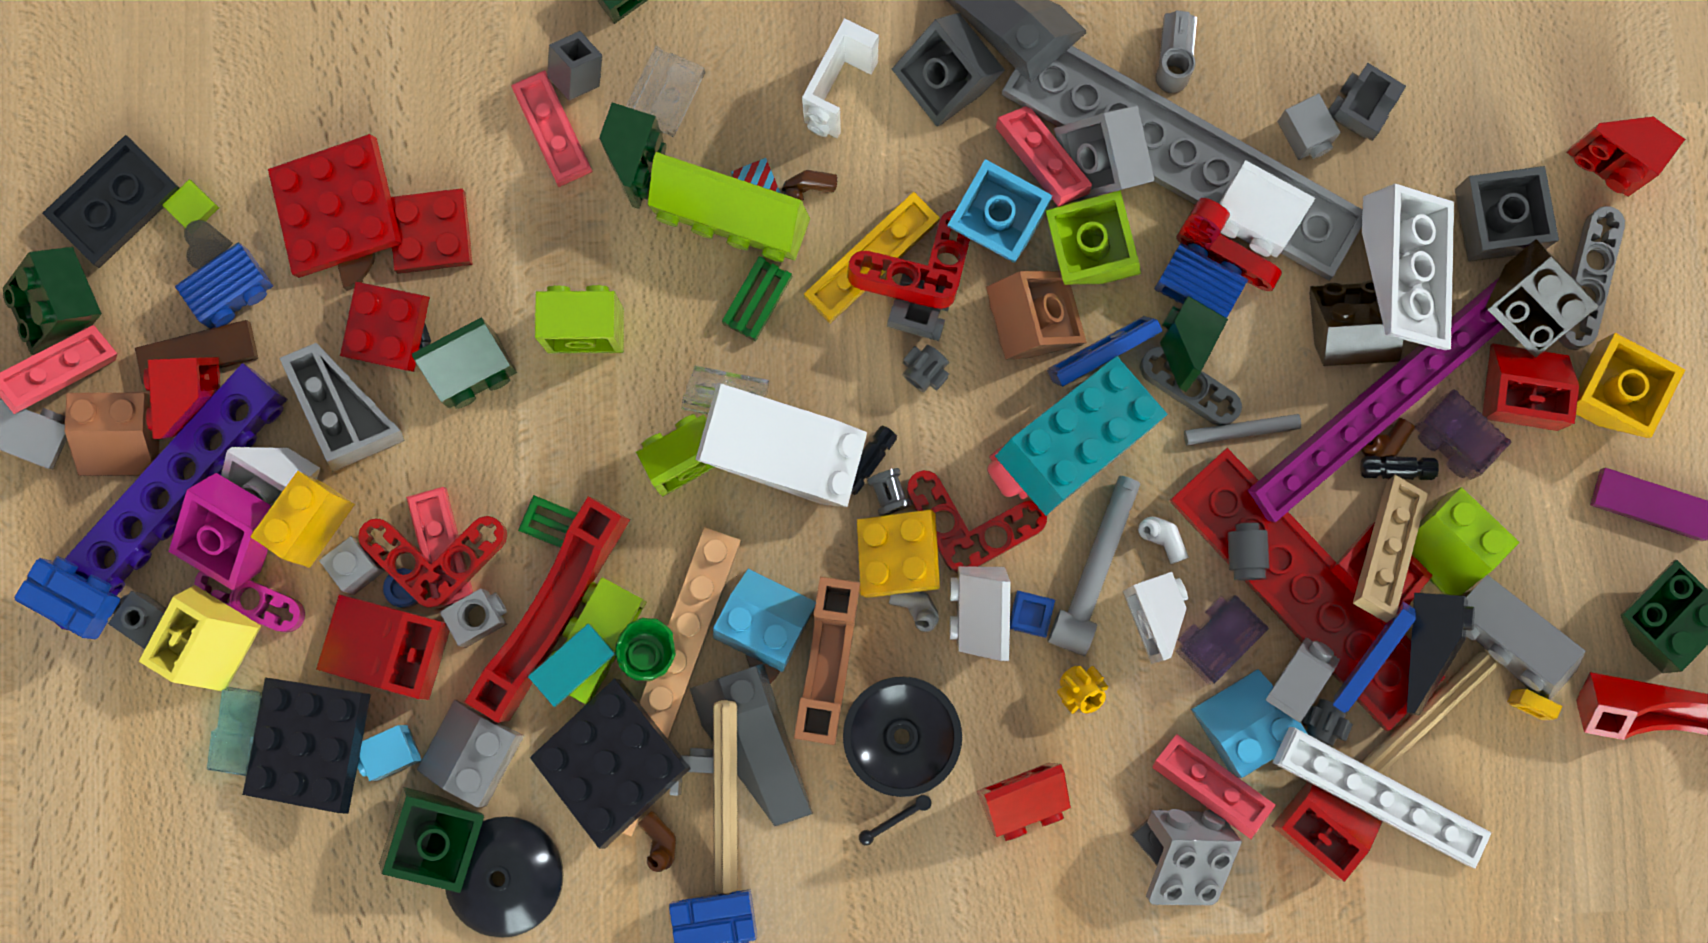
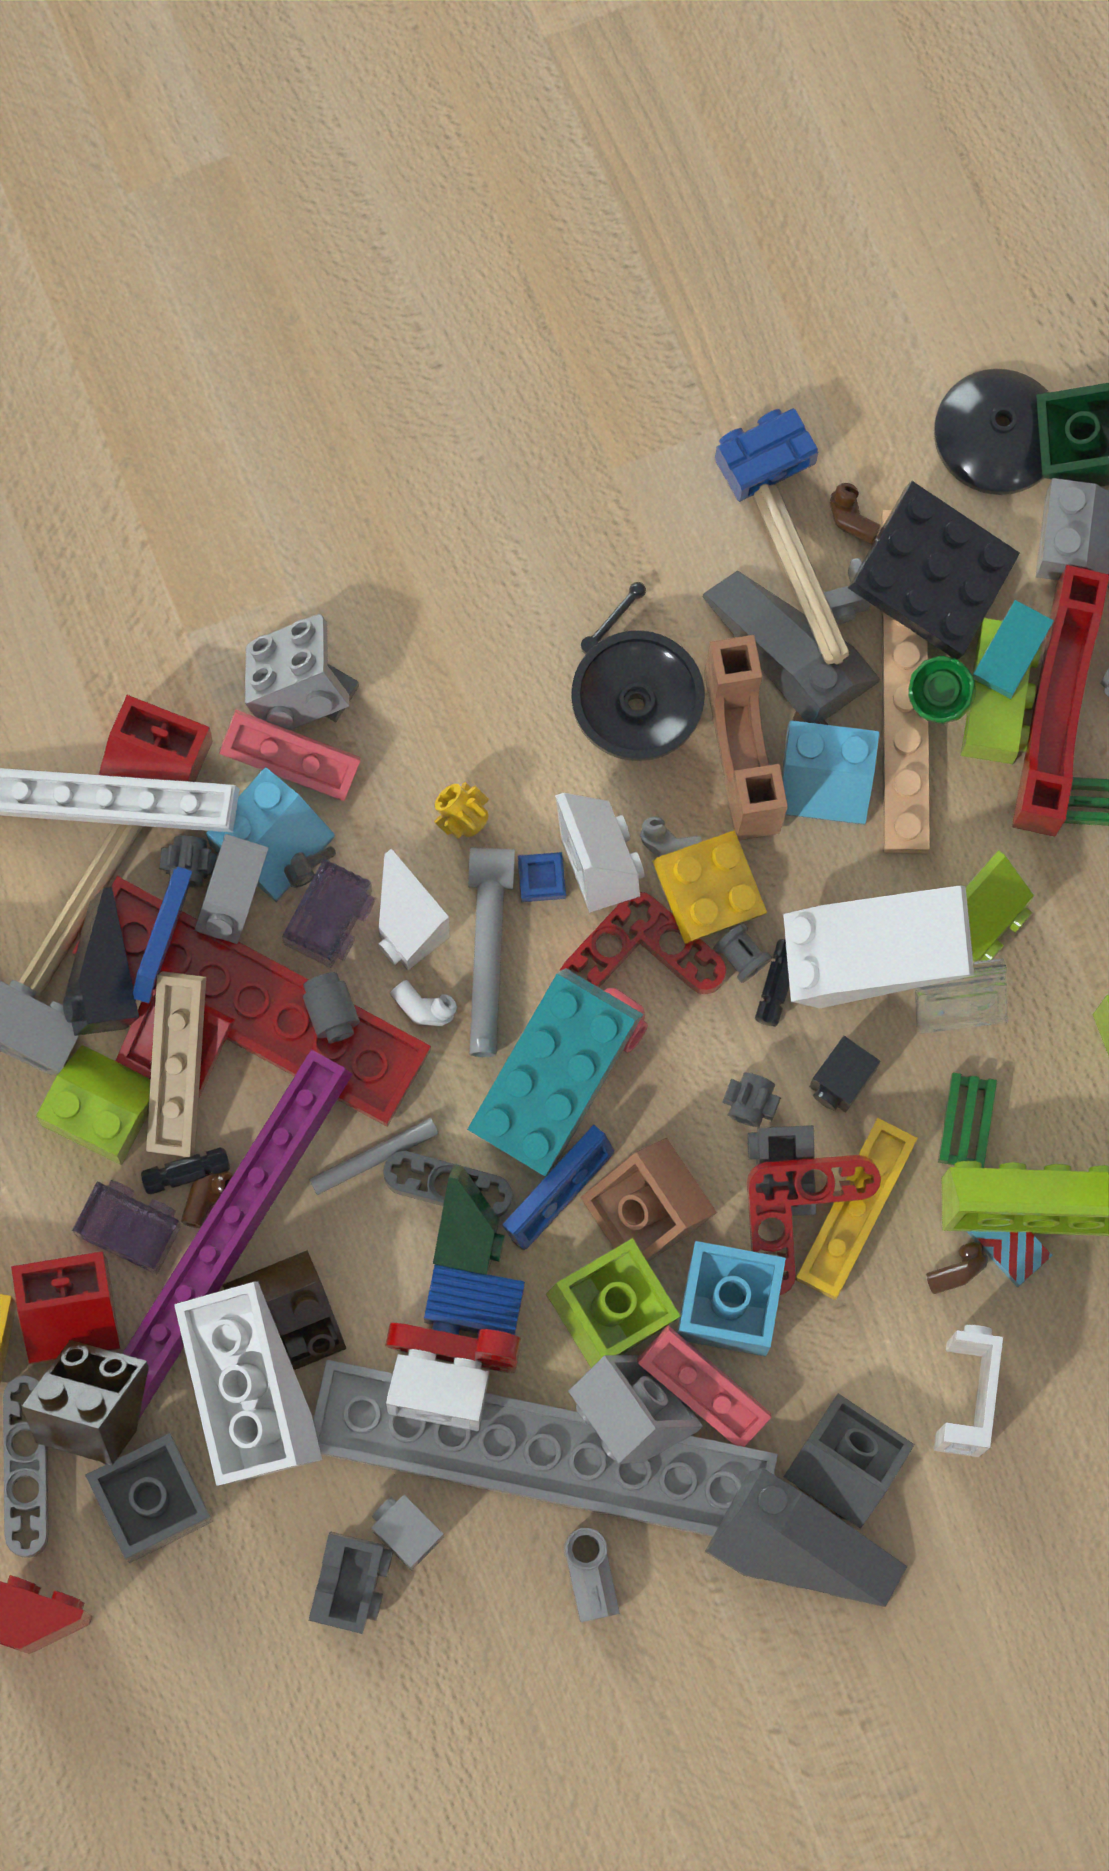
camera: 155 degrees right, 5 degrees down
(844, 363) = (843, 1075): none -> black brick
(1025, 799) = (489, 674): red slope -> none
(1235, 683) = (301, 871): none -> clear smoke hand

